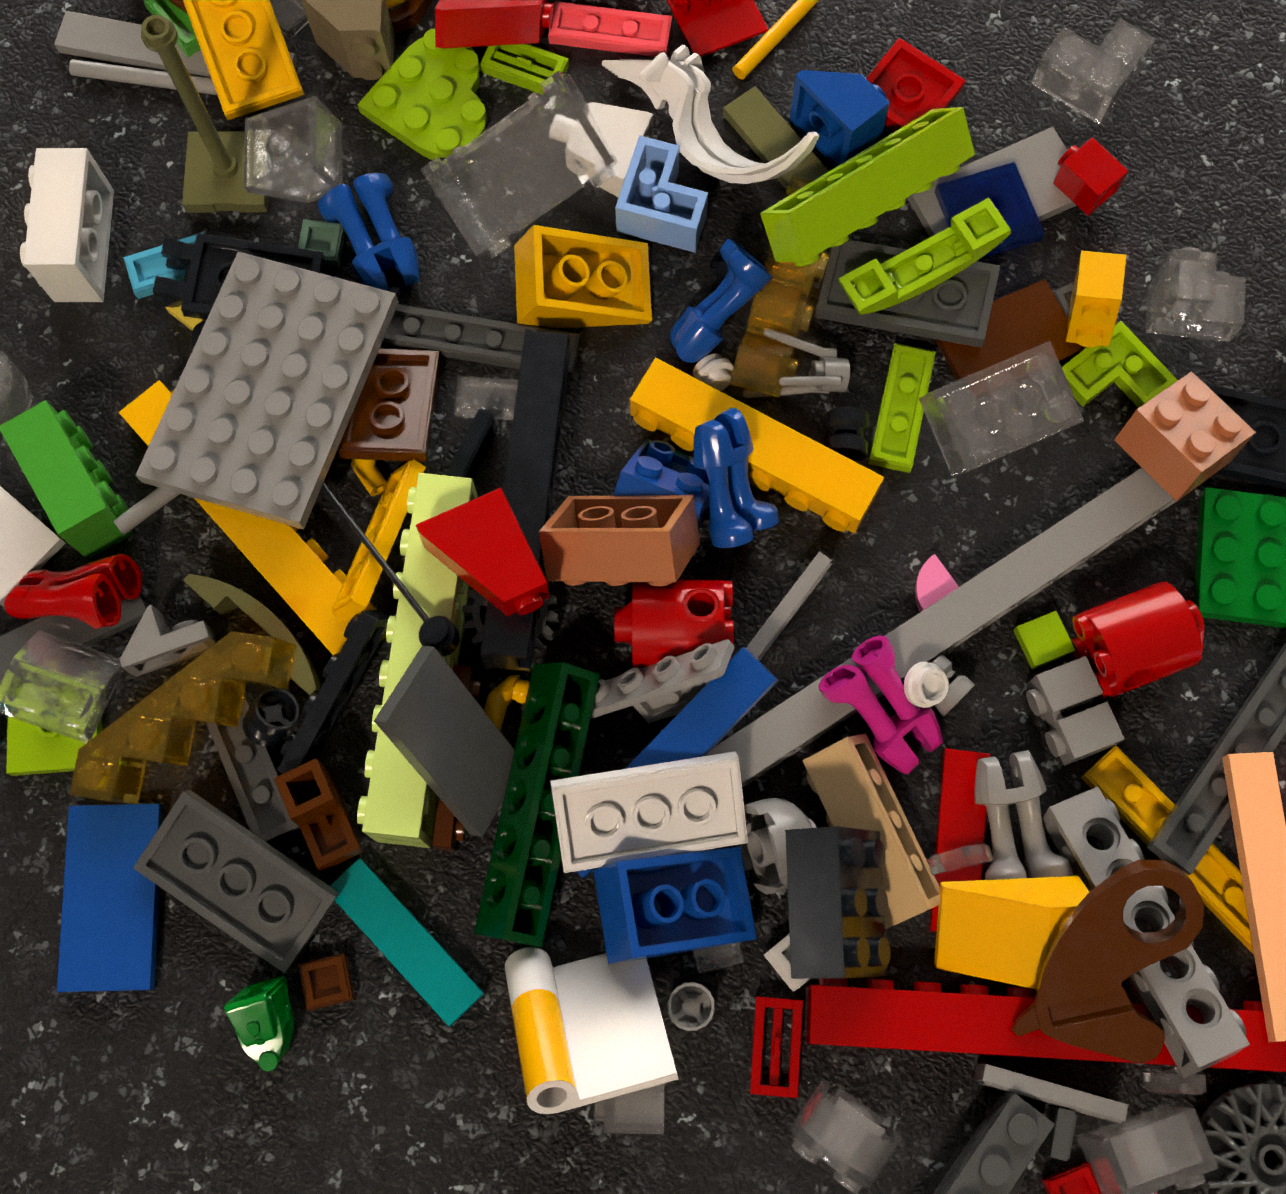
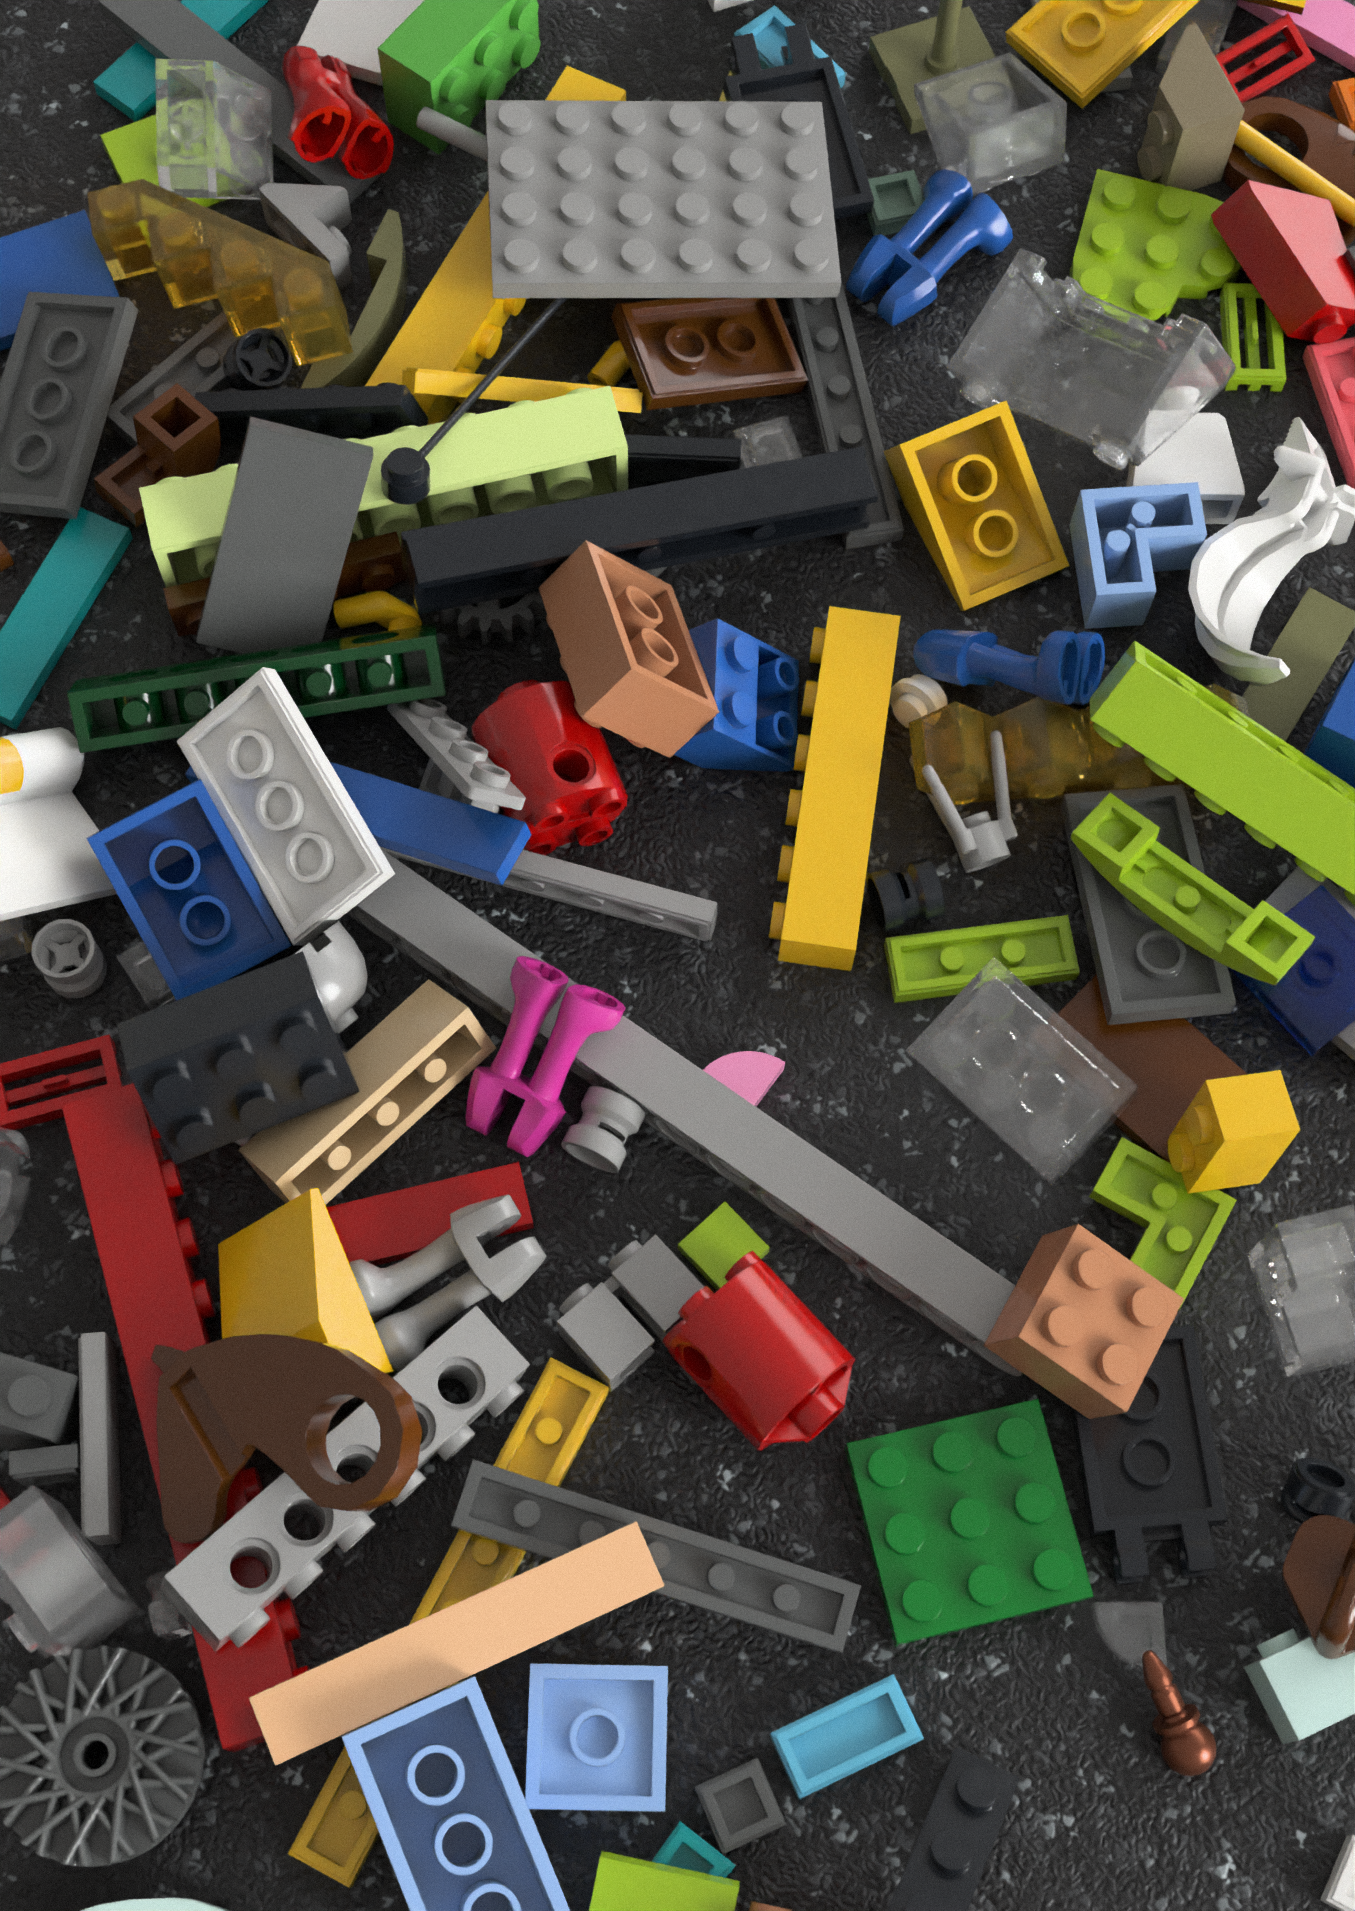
camera: 65 degrees right, 5 degrees down
(488, 552) = (530, 488): red slope -> none
(723, 451) = (741, 810): blue piece -> none
(925, 684) = (581, 1087): white plate -> none
(960, 858) = (370, 1221): clear tile -> none

